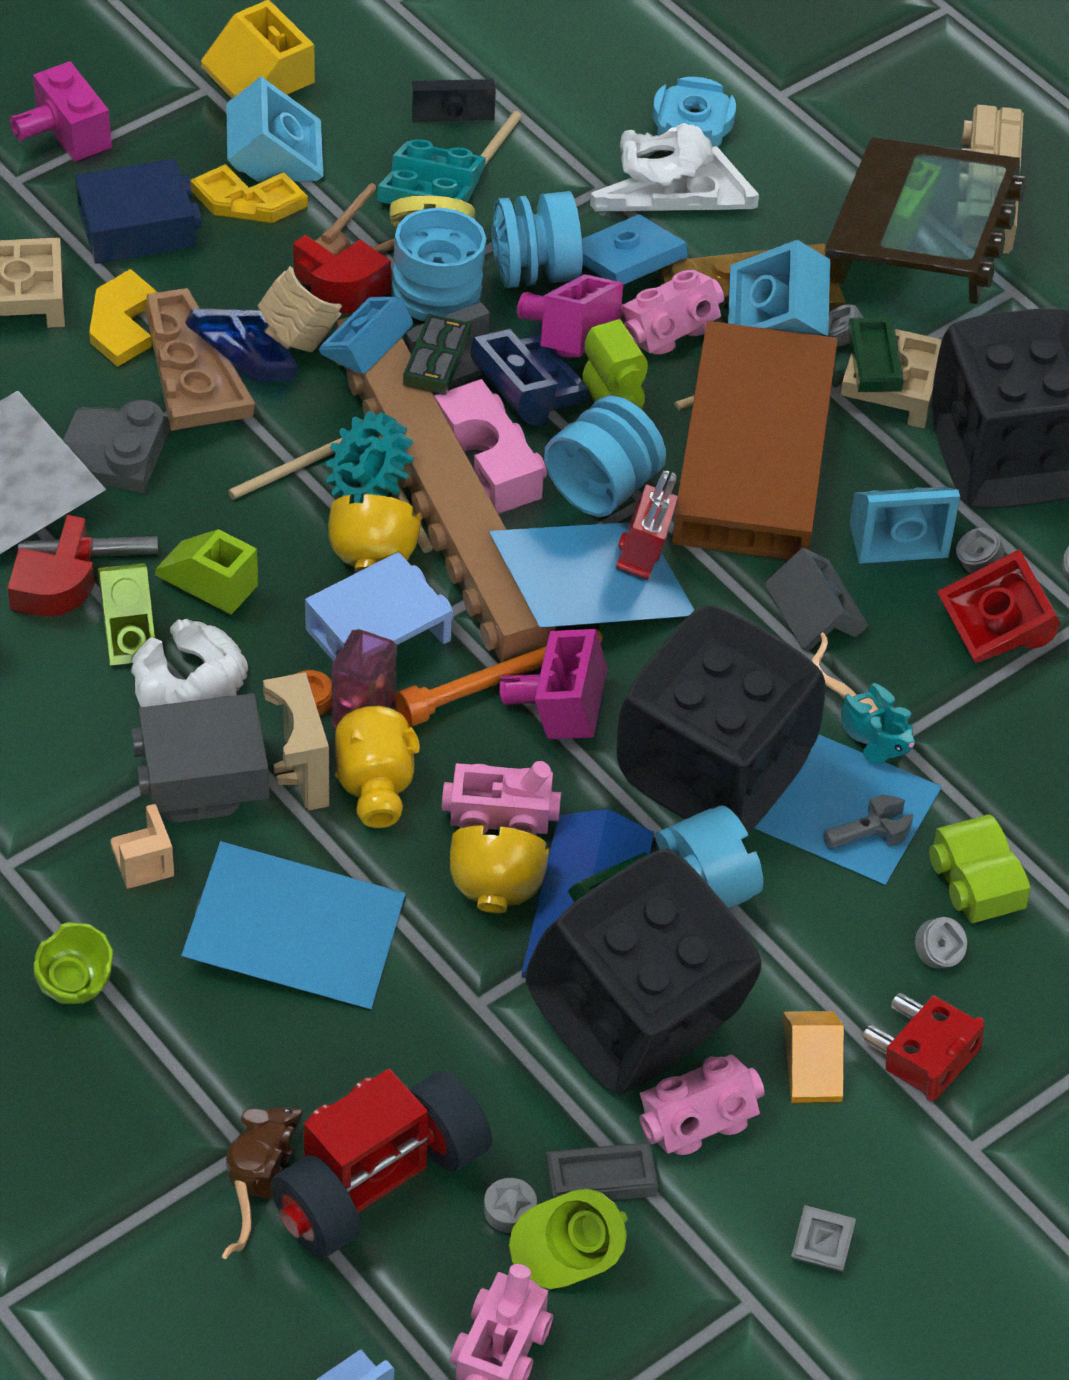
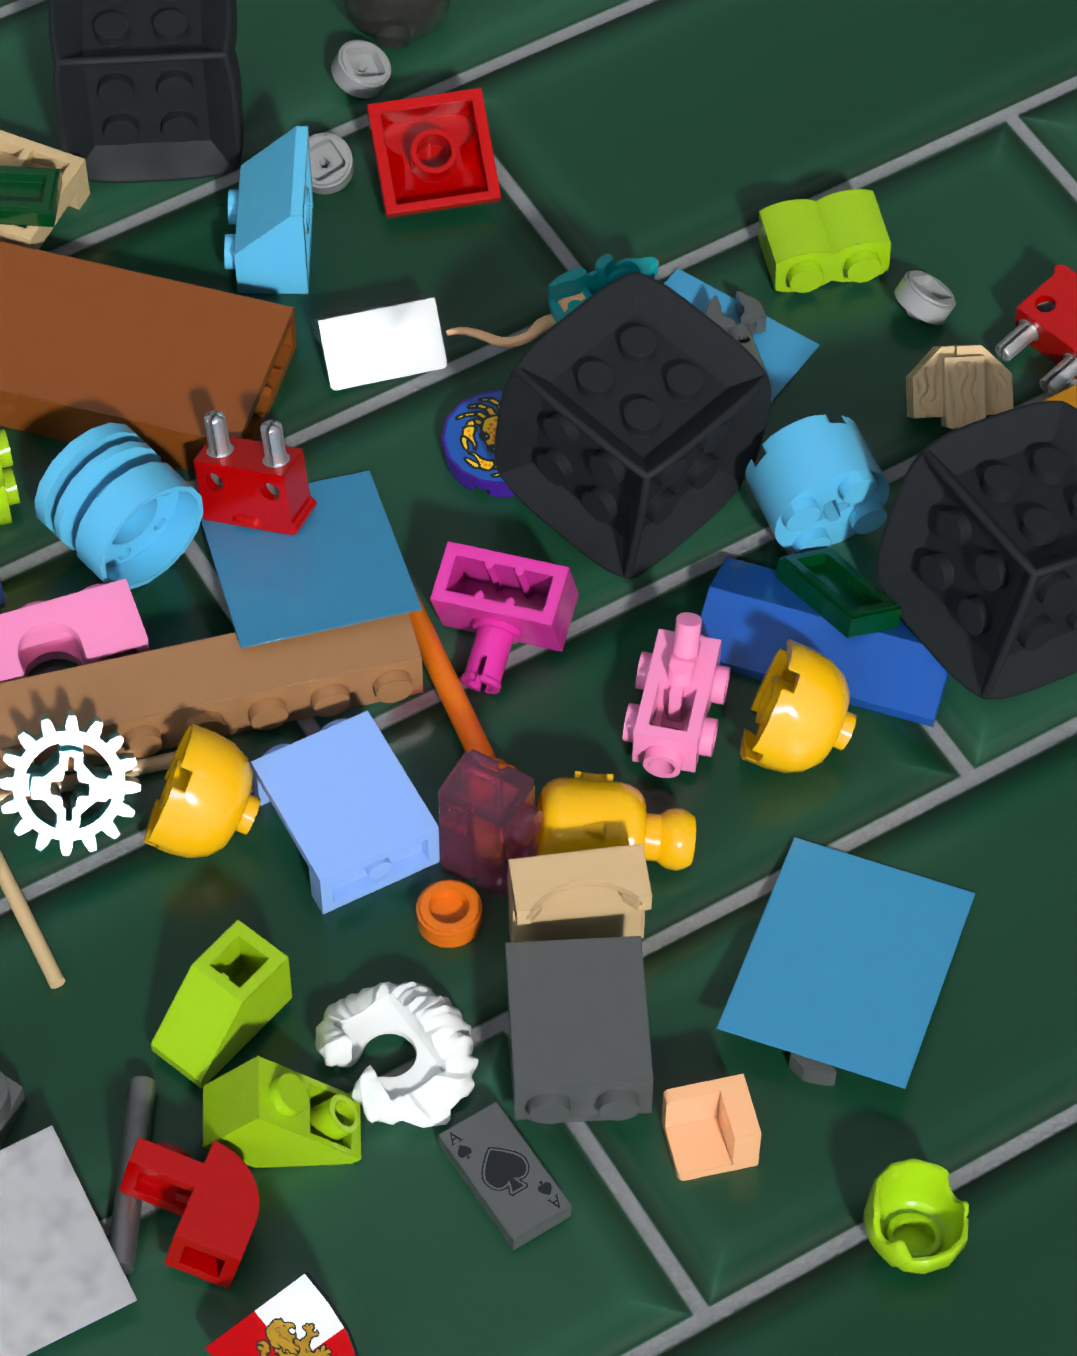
camera: 80 degrees left, 5 degrees up
(96, 742) = (505, 1175): none -> dark grey tile
(844, 964) = (958, 385): none -> tan hair

